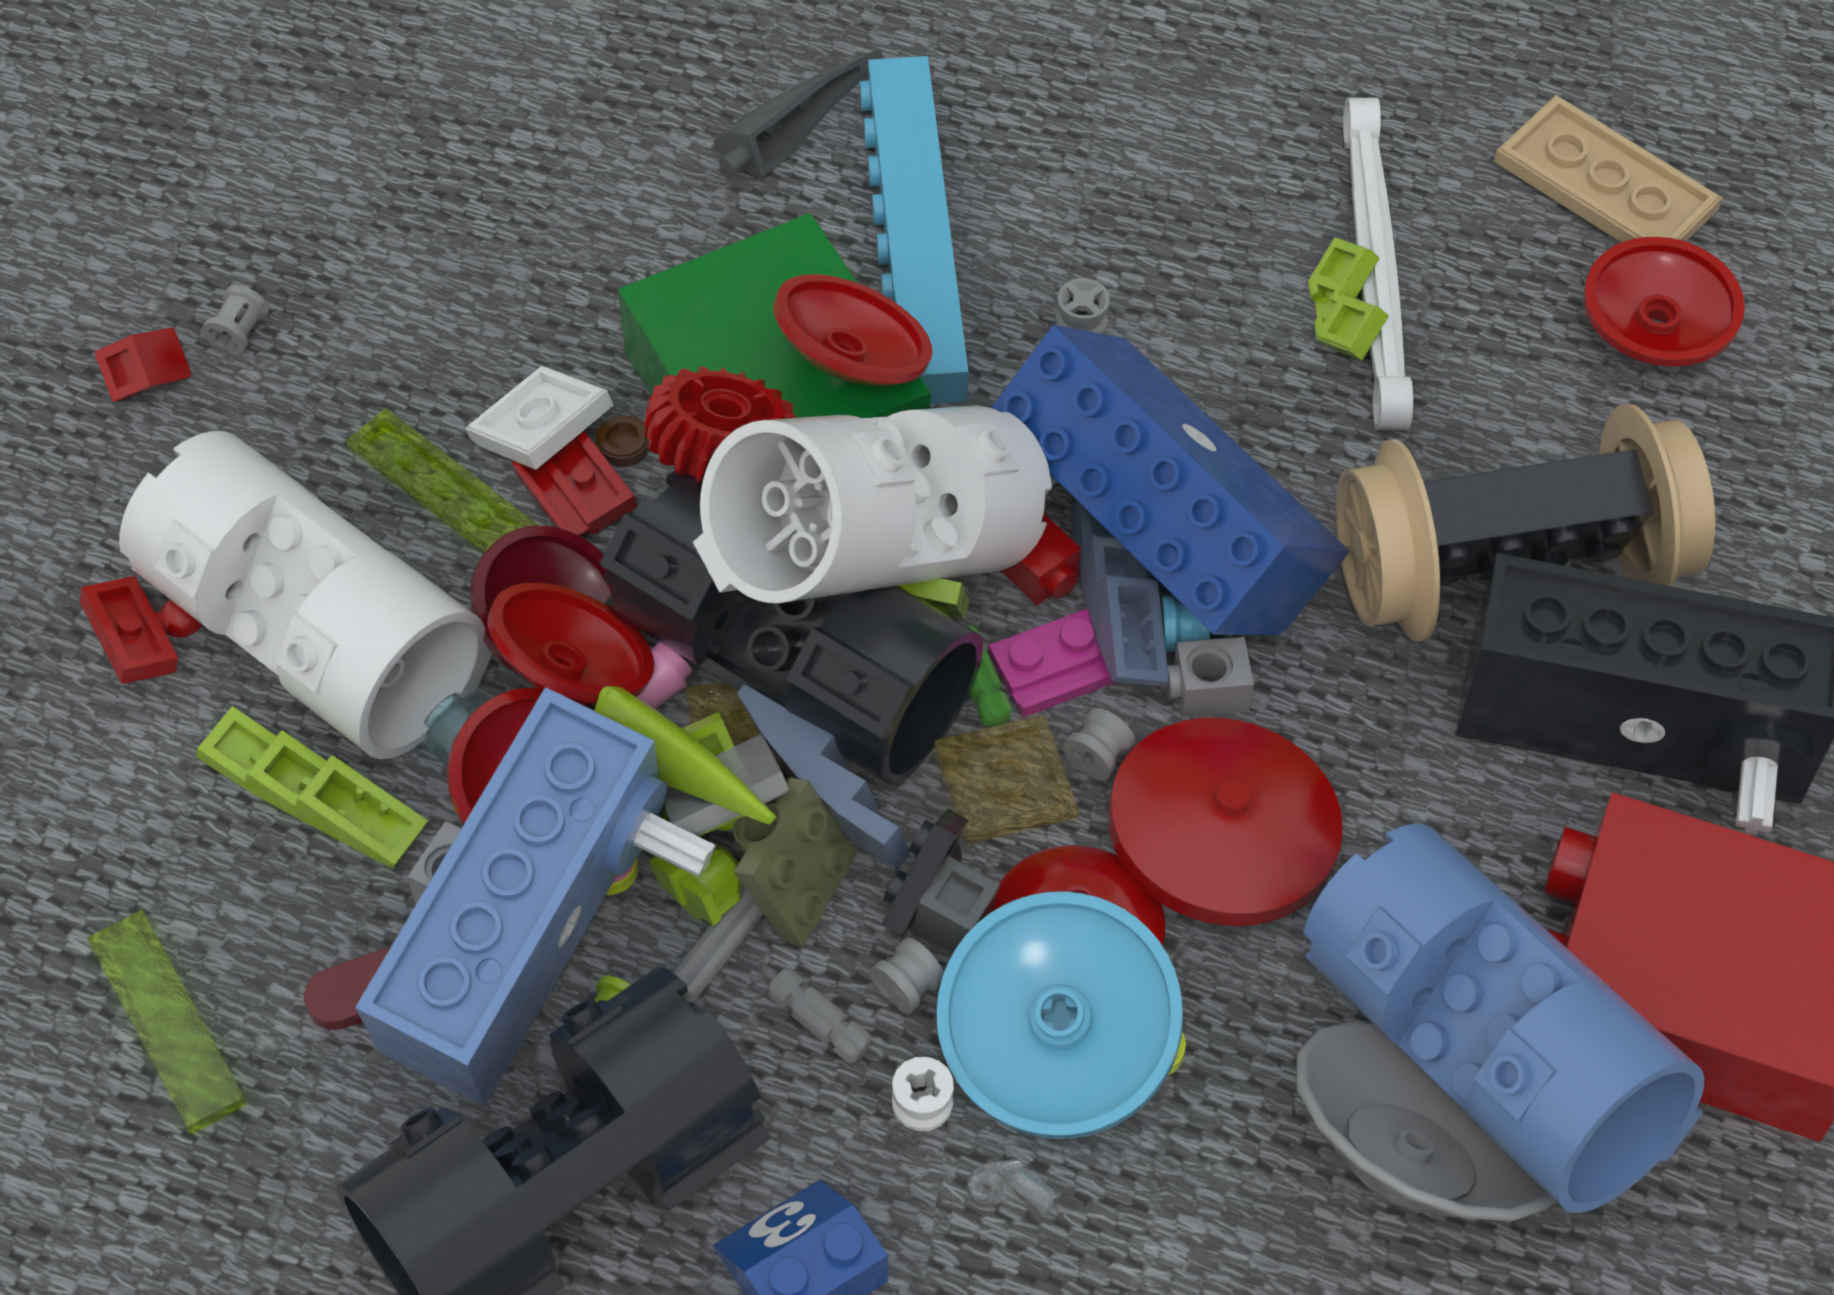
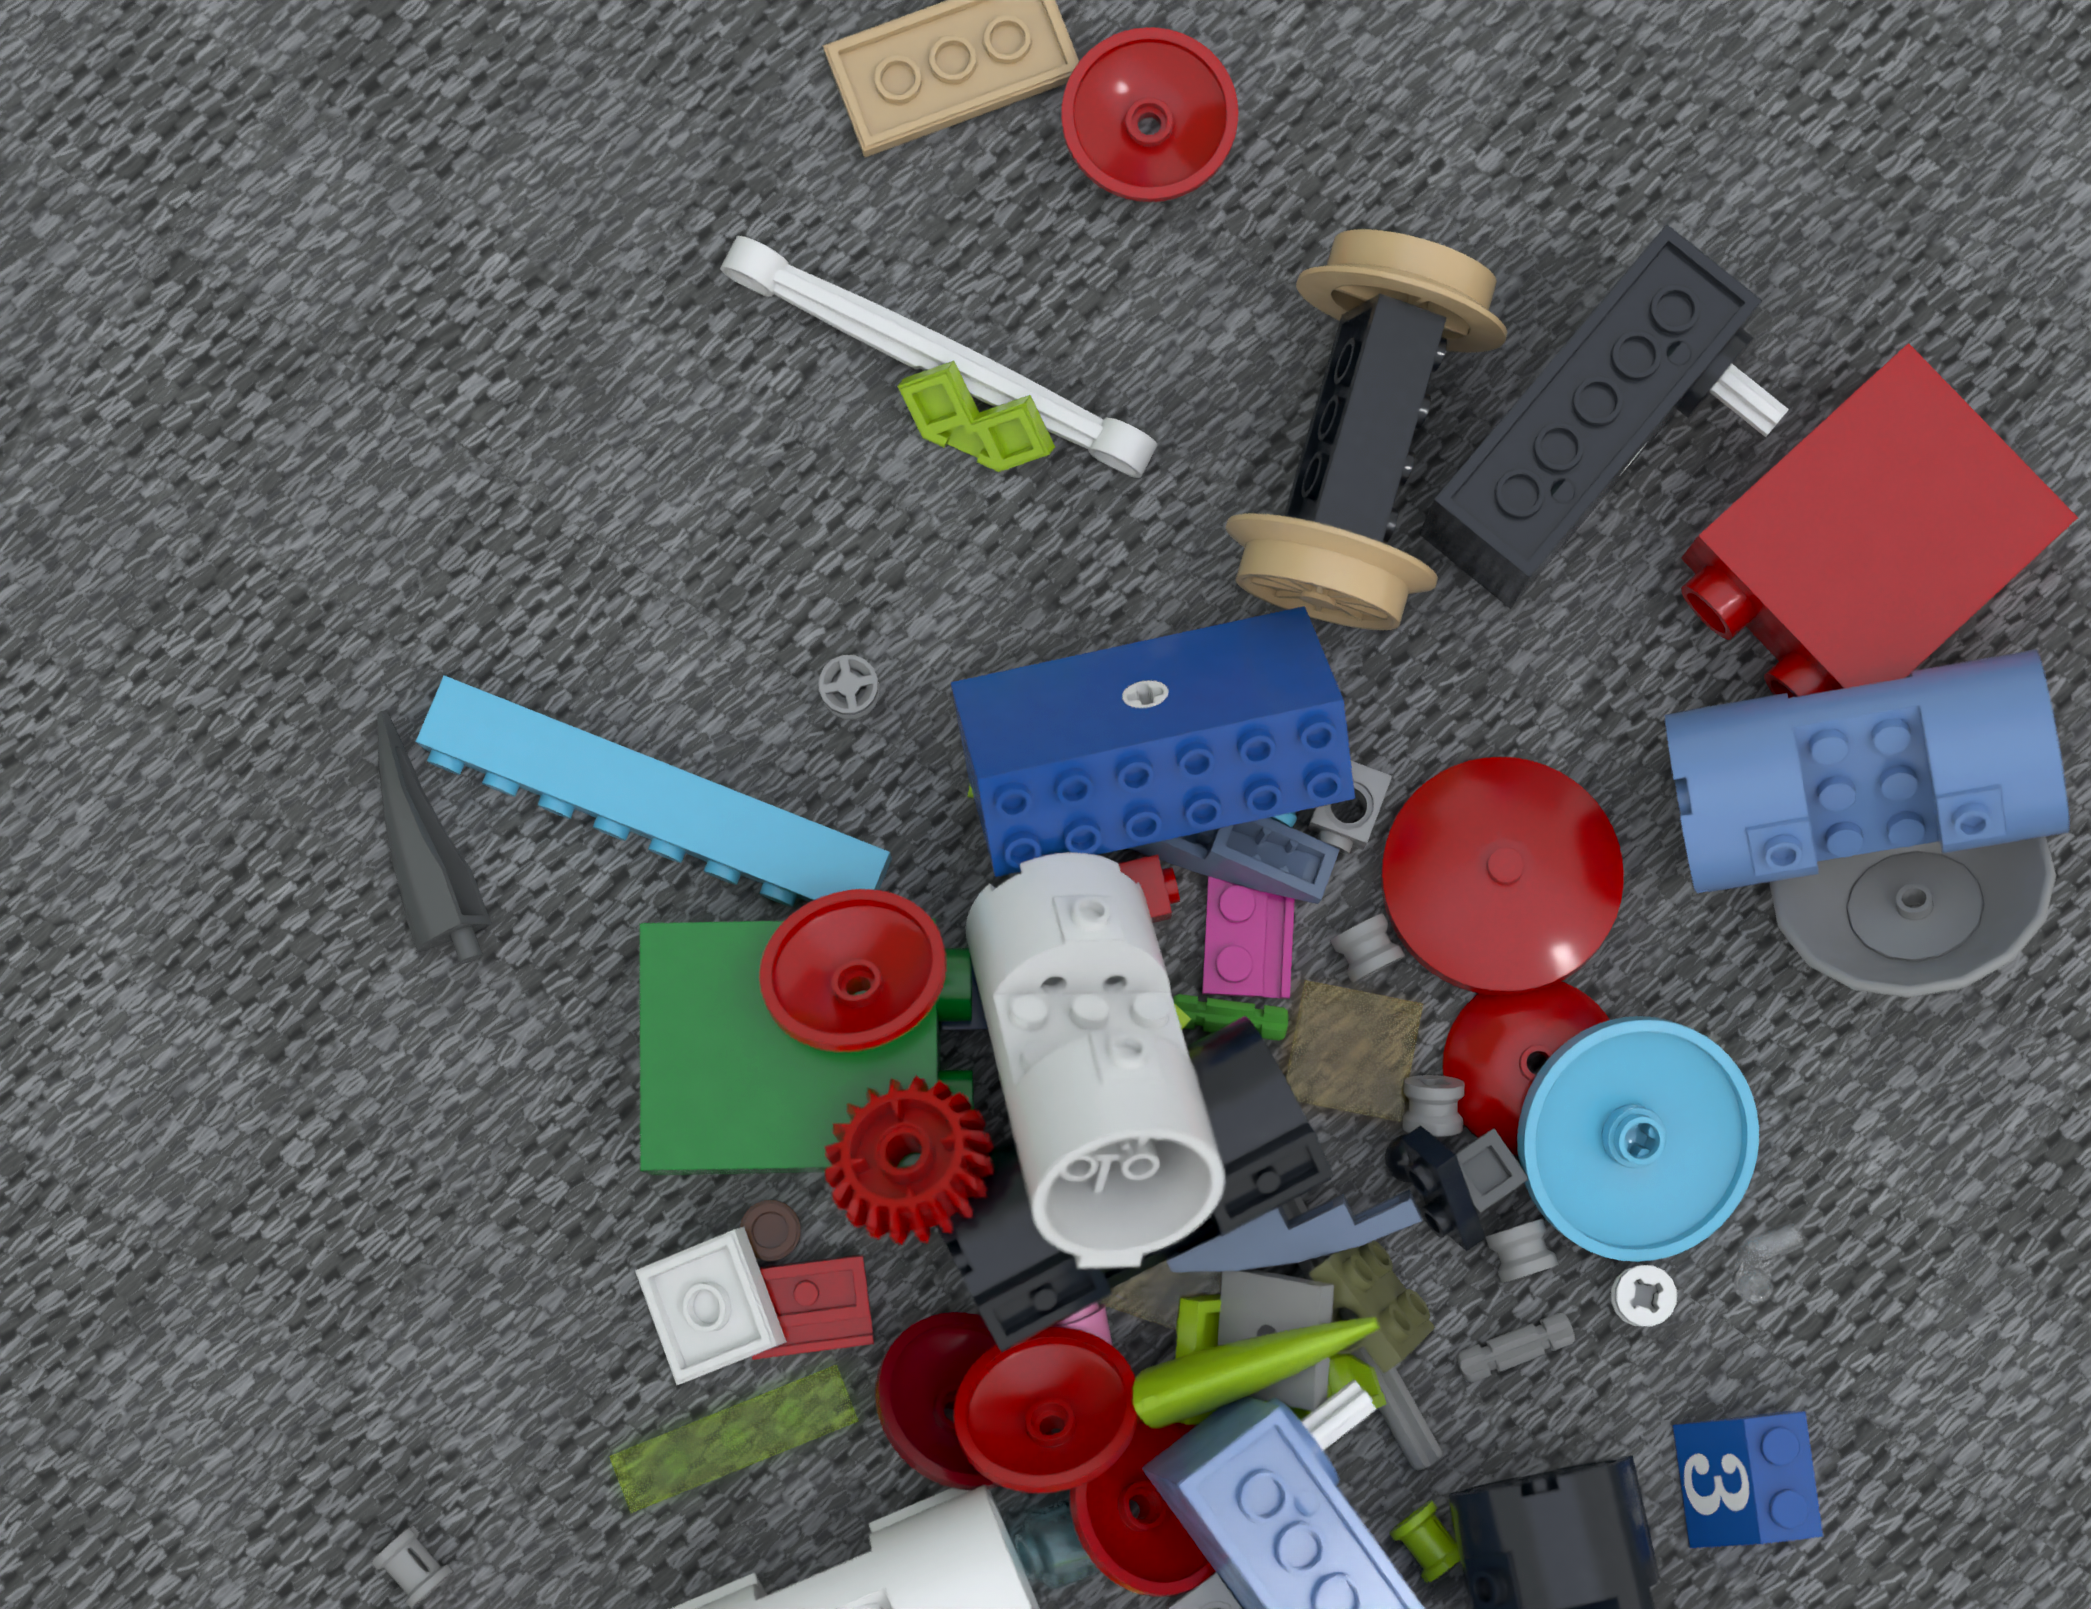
camera: 60 degrees left, 25 degrees up
(994, 847) = (1433, 1104): none -> light grey wheel

